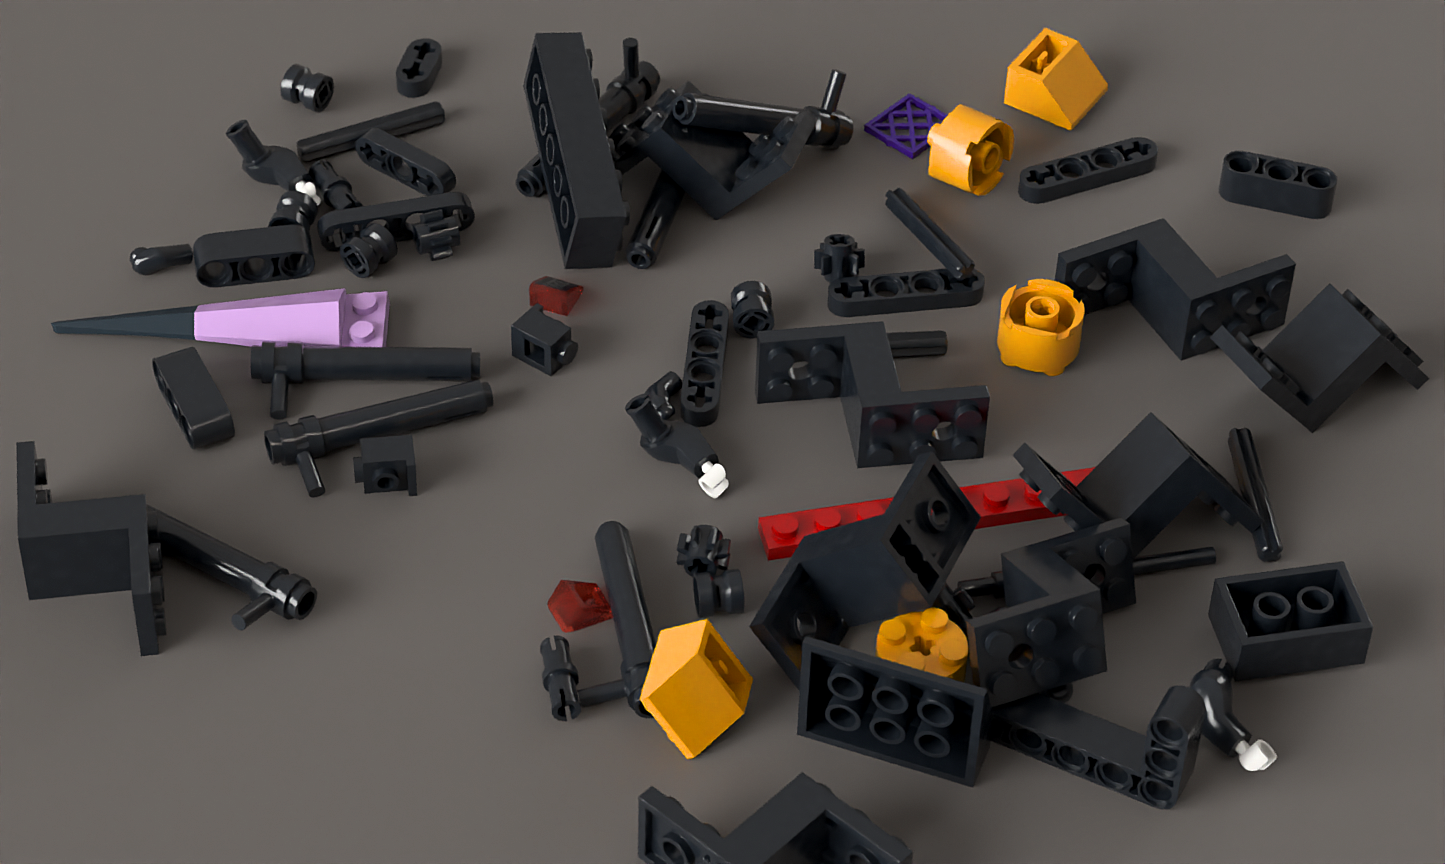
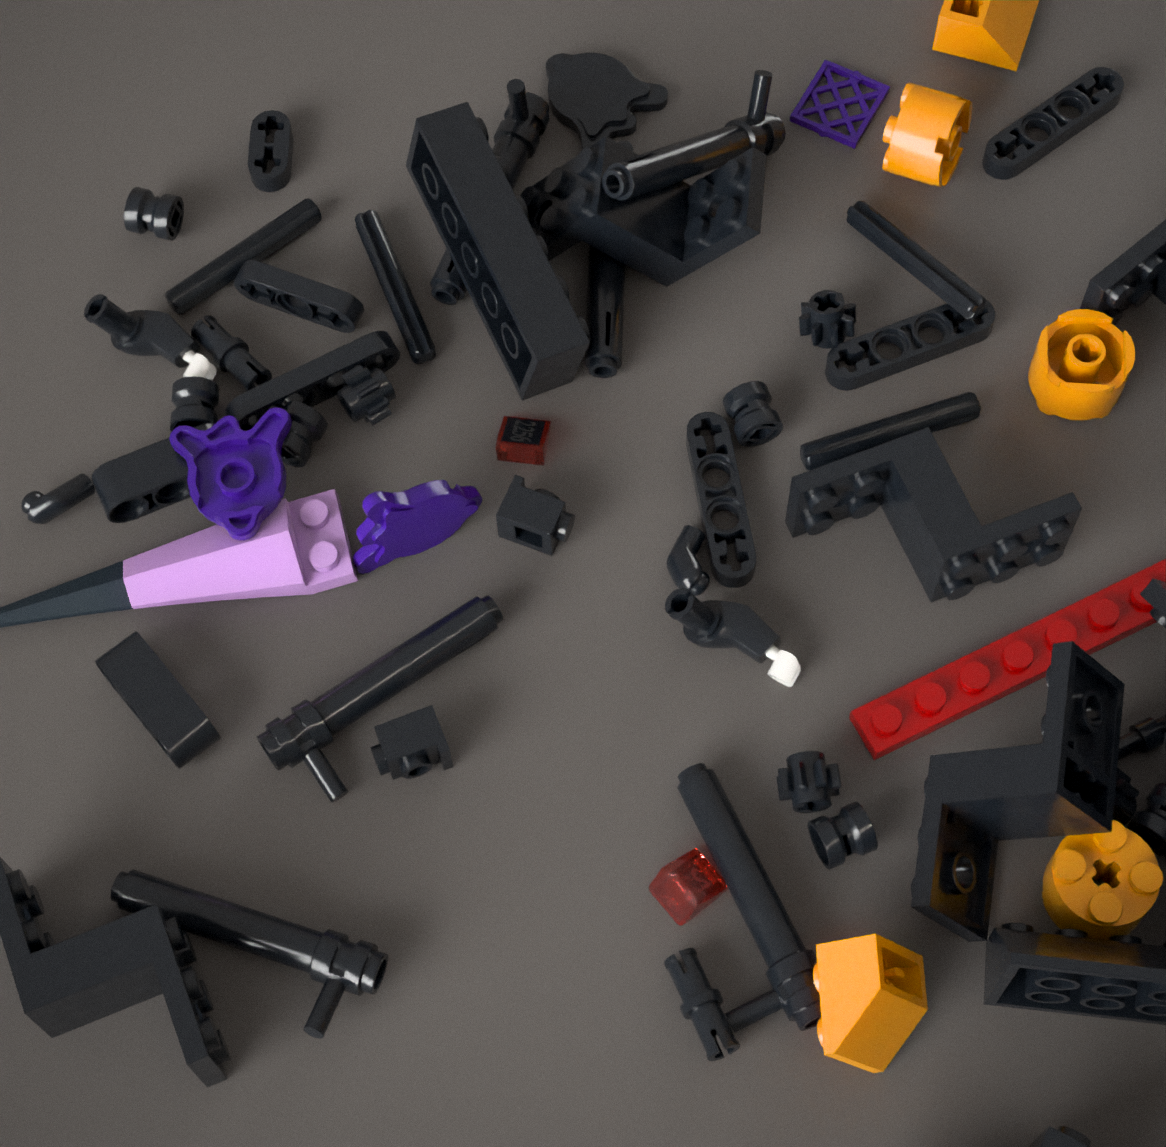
camera: 10 degrees left, 20 degrees up
(299, 362) = (263, 617): black cylinder -> none
(310, 257) = (235, 472): none -> dark purple tile
(442, 313) = (411, 521): none -> dark purple tile
(488, 175) = (395, 287): none -> black axle
(711, 74) = (598, 95): none -> black tile

